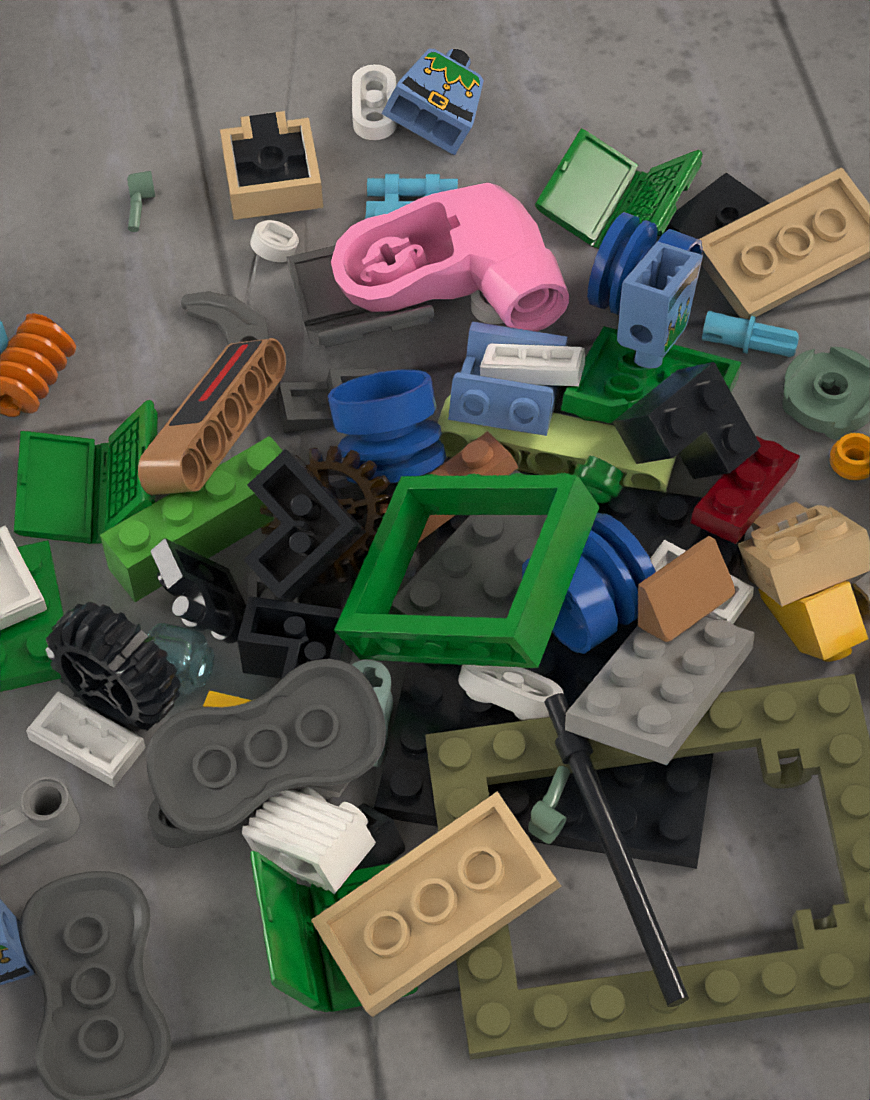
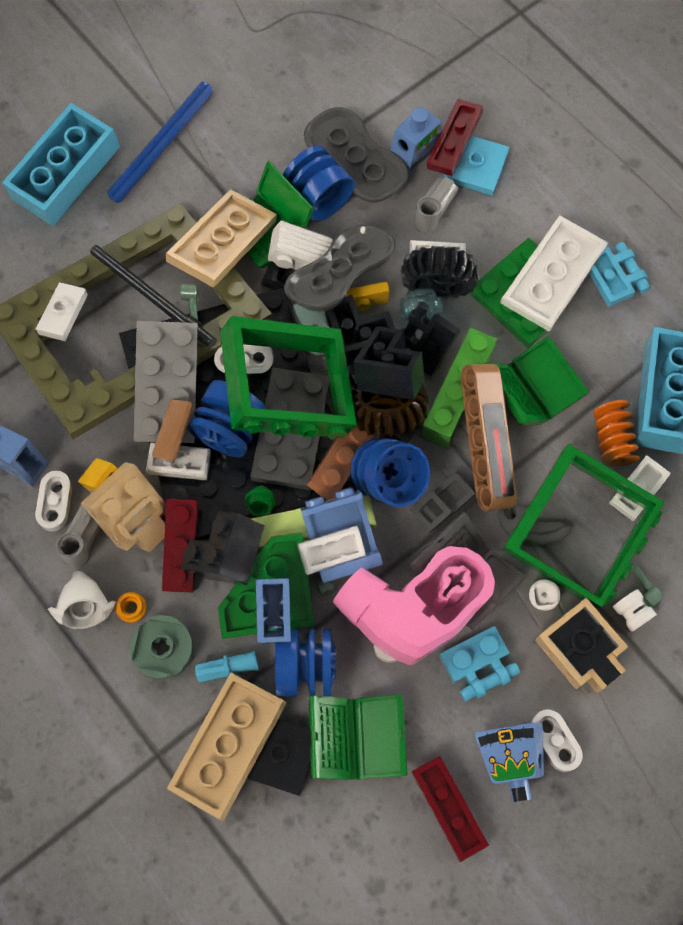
camera: 150 degrees right, 15 degrees up
(54, 295) = (648, 476): none -> white plate
(176, 176) = (631, 603): none -> white wheel
(188, 319) = (634, 543): none -> green window
(203, 933) = (320, 181): none -> blue wheel
(547, 94) = (450, 809): none -> dark red plate
(787, 893) = (61, 311): none -> white plate

